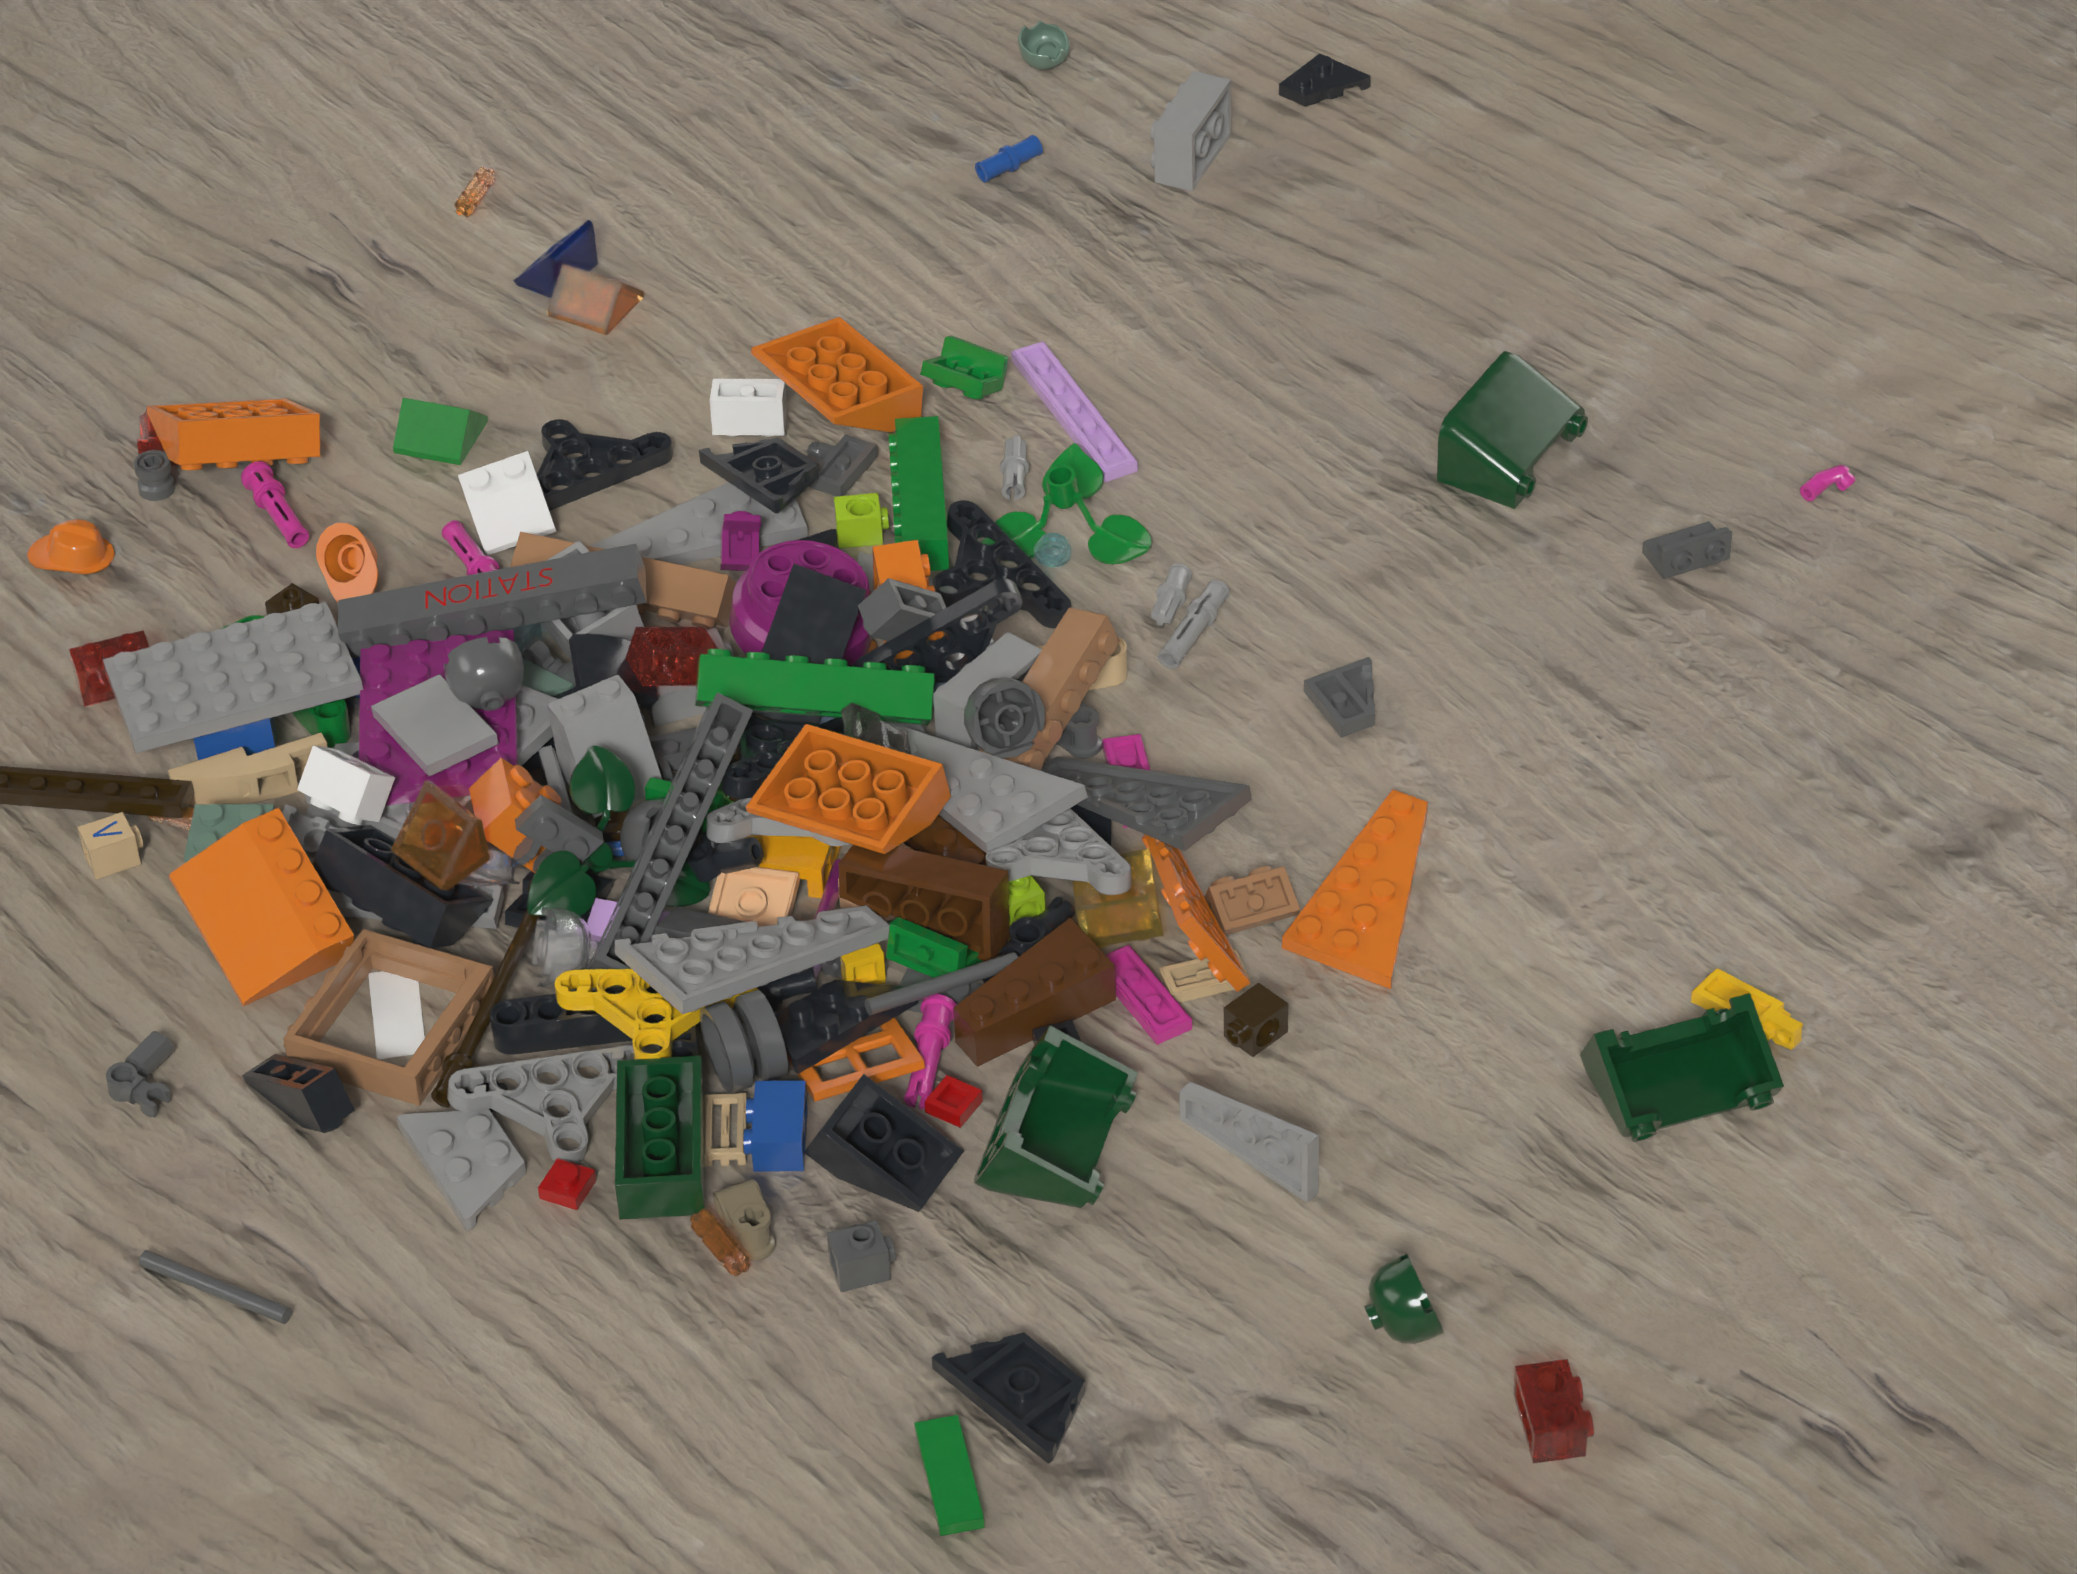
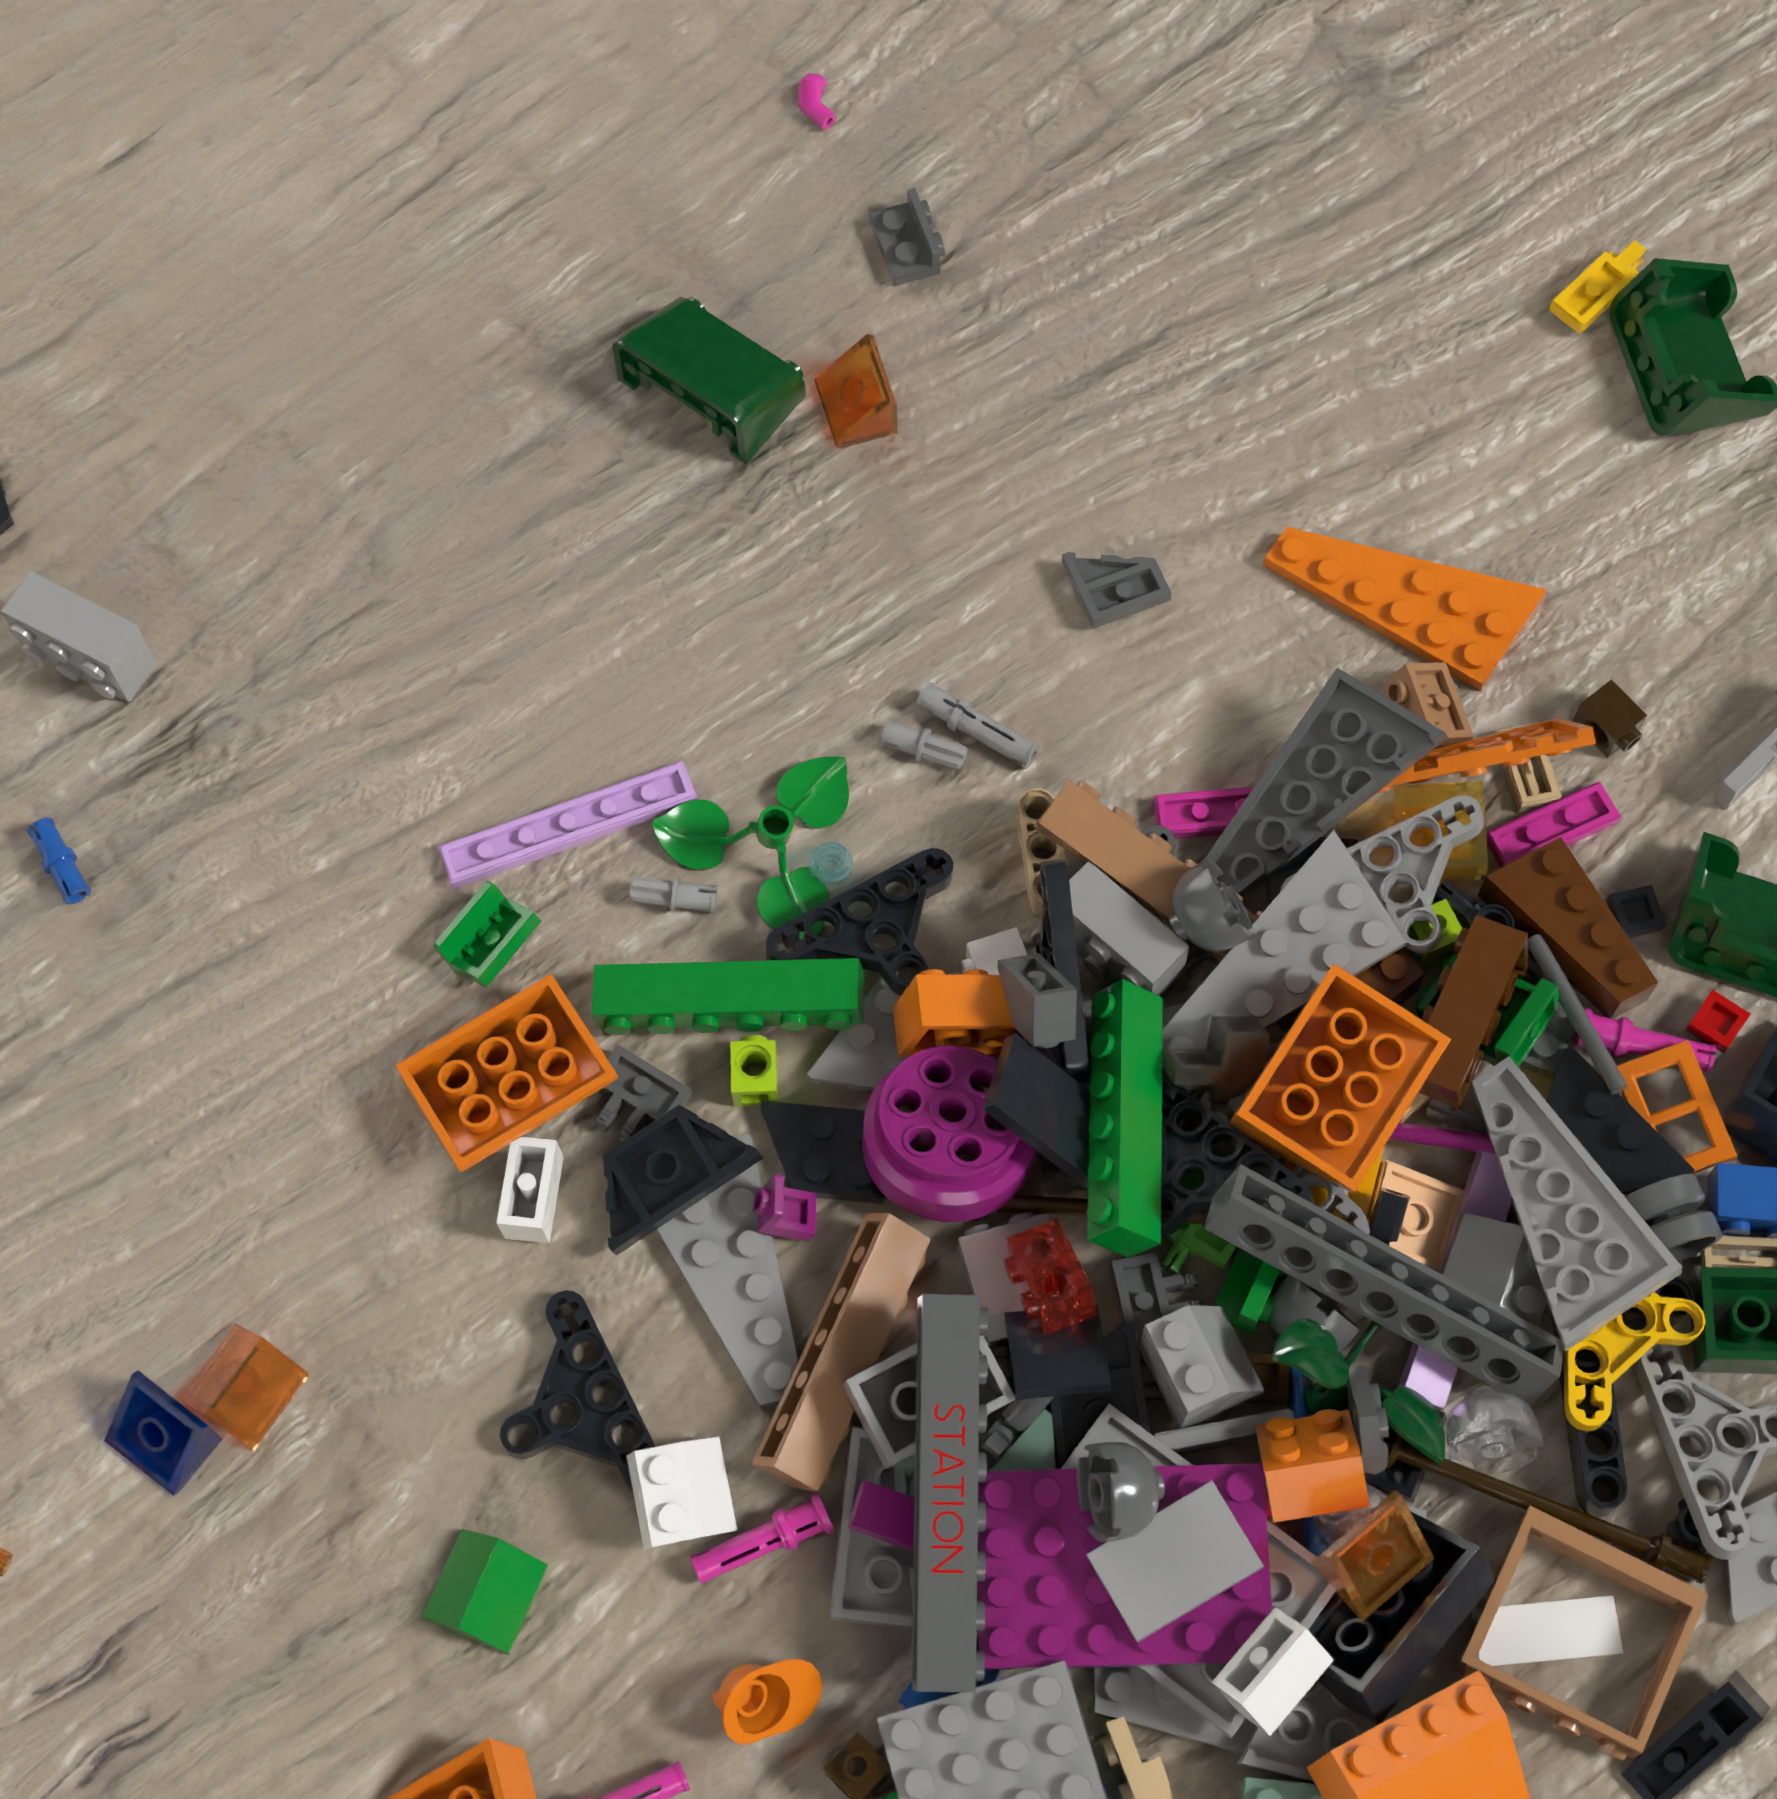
camera: 85 degrees left, 25 degrees up
(1514, 533) = (858, 396): none -> clear orange slope

